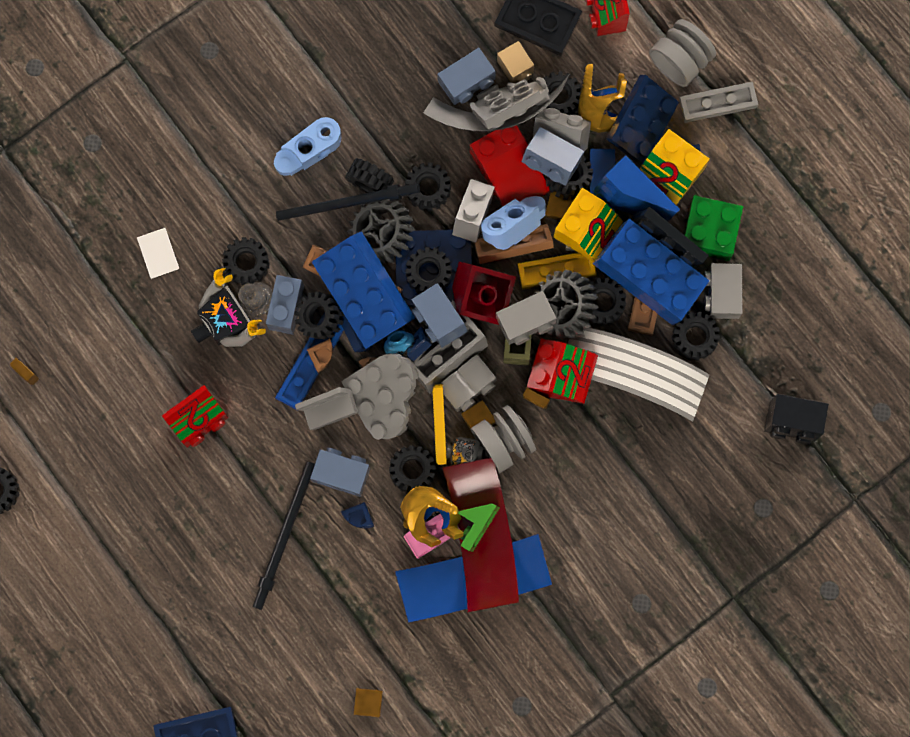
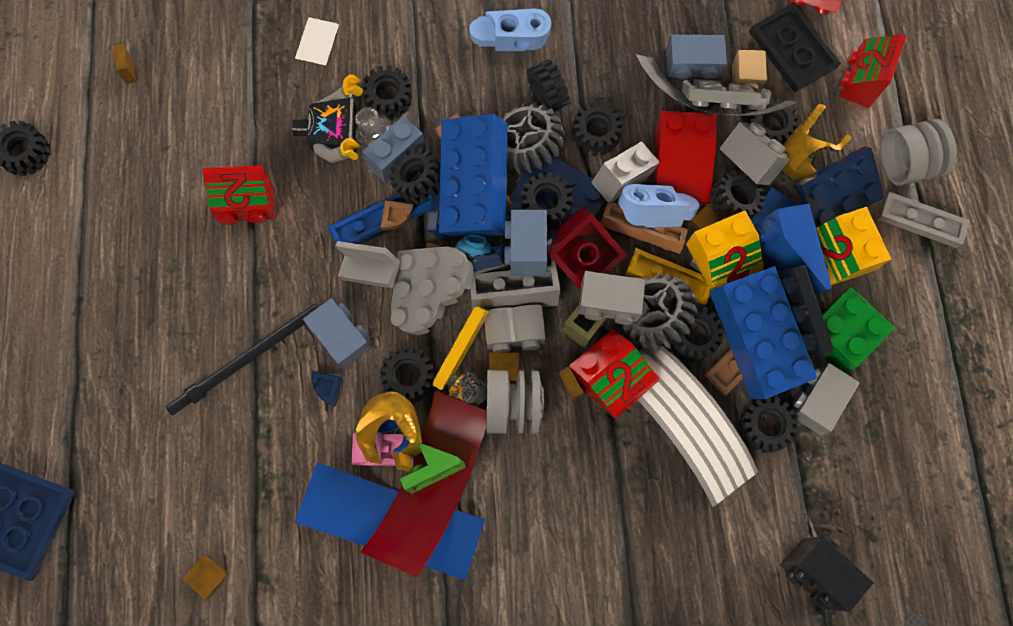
camera: 25 degrees right, 5 degrees down
(392, 193) = (559, 105): black bar -> none
(552, 156) = (734, 165): brick -> none

